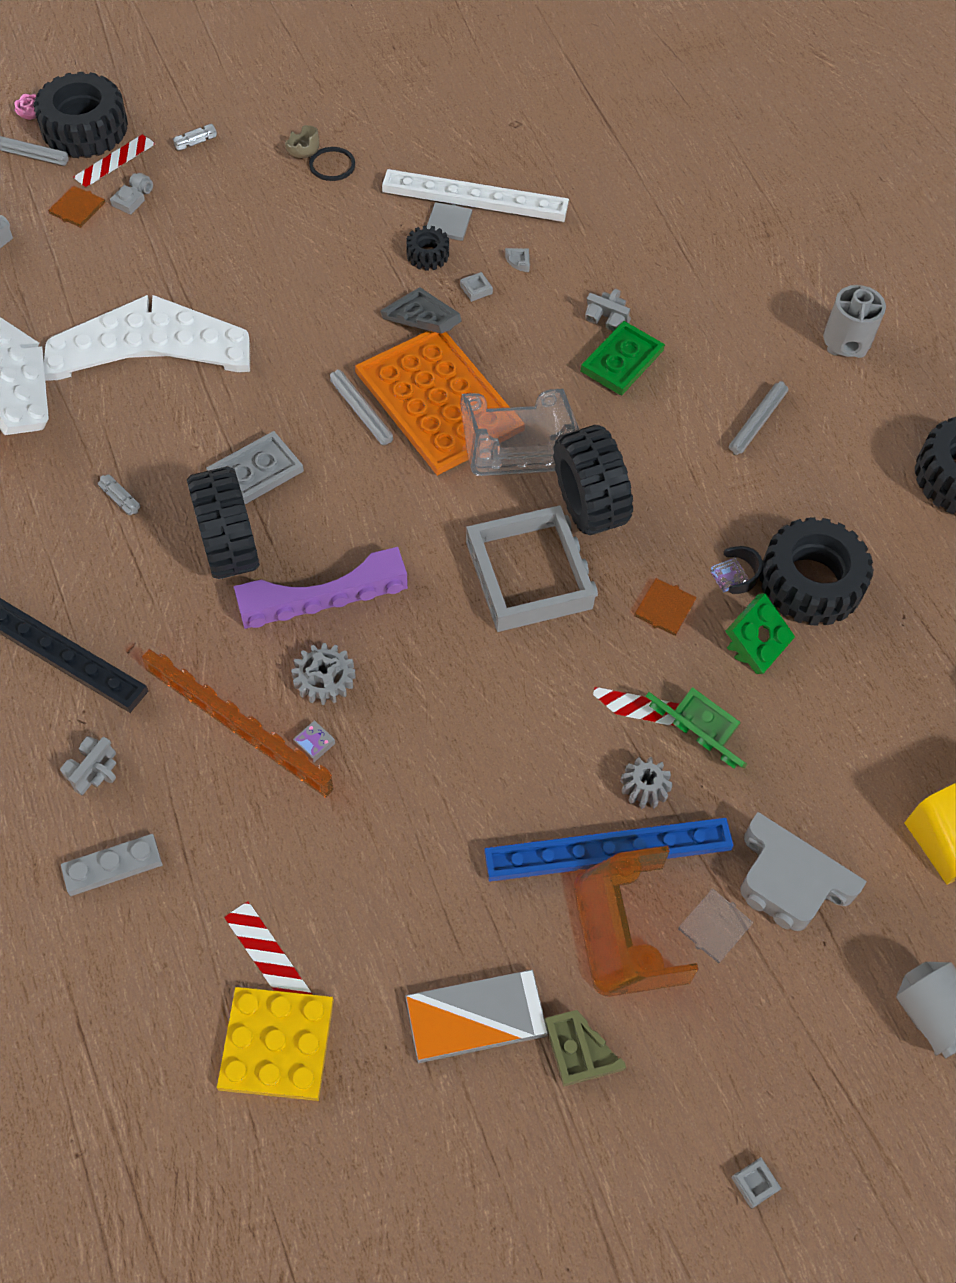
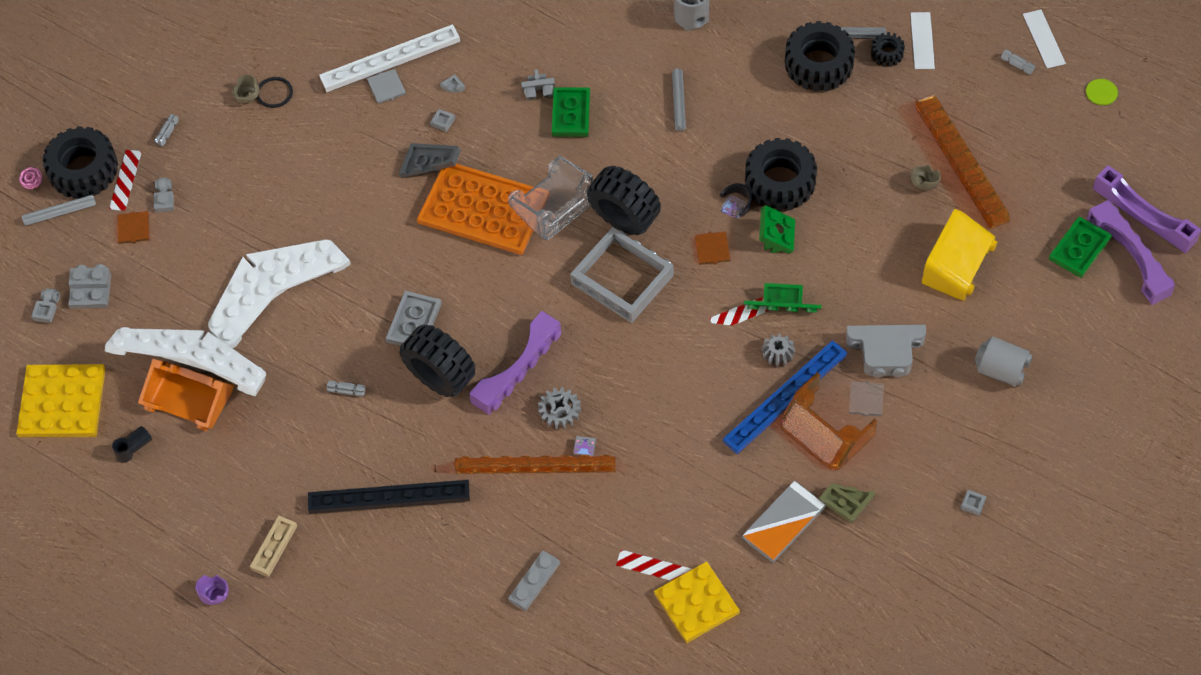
camera: 30 degrees left, 0 degrees up
(94, 767) = (474, 531): light grey hips -> none
(361, 407) = (441, 242): light grey axle -> none
(427, 238) = (388, 105): black tyre -> none

